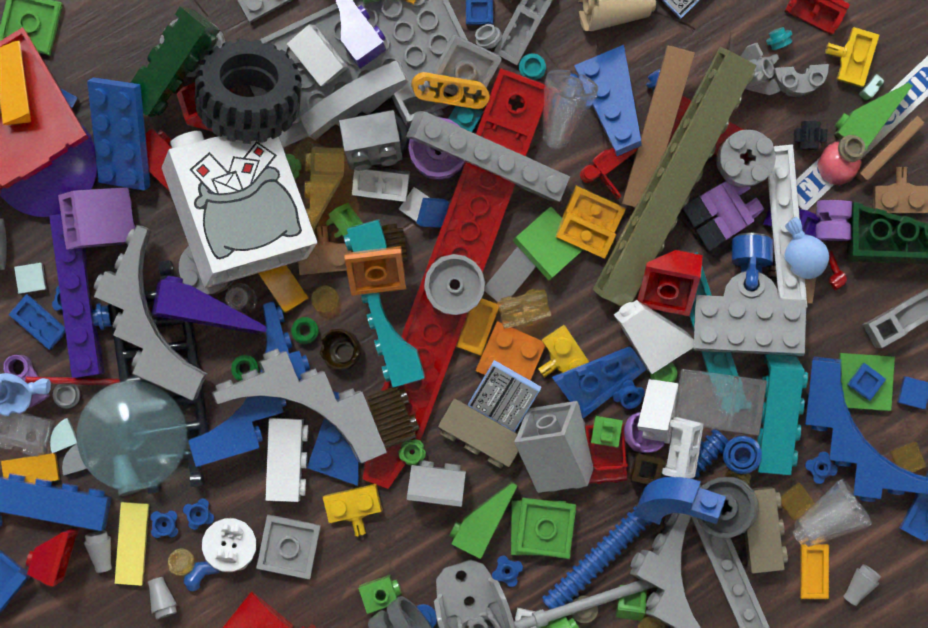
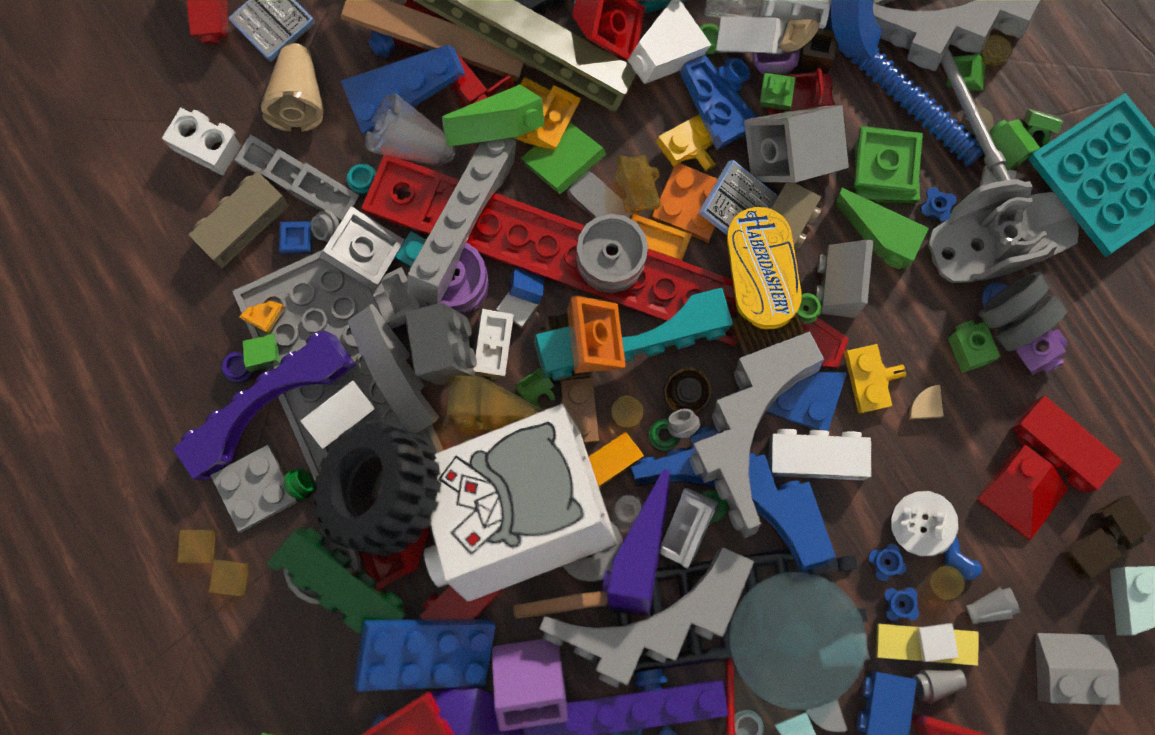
camera: 85 degrees left, 10 degrees down
(131, 550) = (937, 642): none -> white tile
(158, 242) = (561, 604): none -> medium nougat tile
(224, 348) = (688, 527): none -> white hinge
(262, 23) = (298, 484): none -> green plate
(288, 546) = (922, 453): light grey plate -> none
(310, 345) = (683, 423): none -> light grey plate
(331, 553) = (927, 404): none -> tan tile
(429, 94) = (375, 270): light orange beam -> none
(442, 414) = (763, 267): none -> yellow tile
(576, 185) = (495, 118): none -> bright green slope
(656, 450) = (798, 34): none -> tan tile

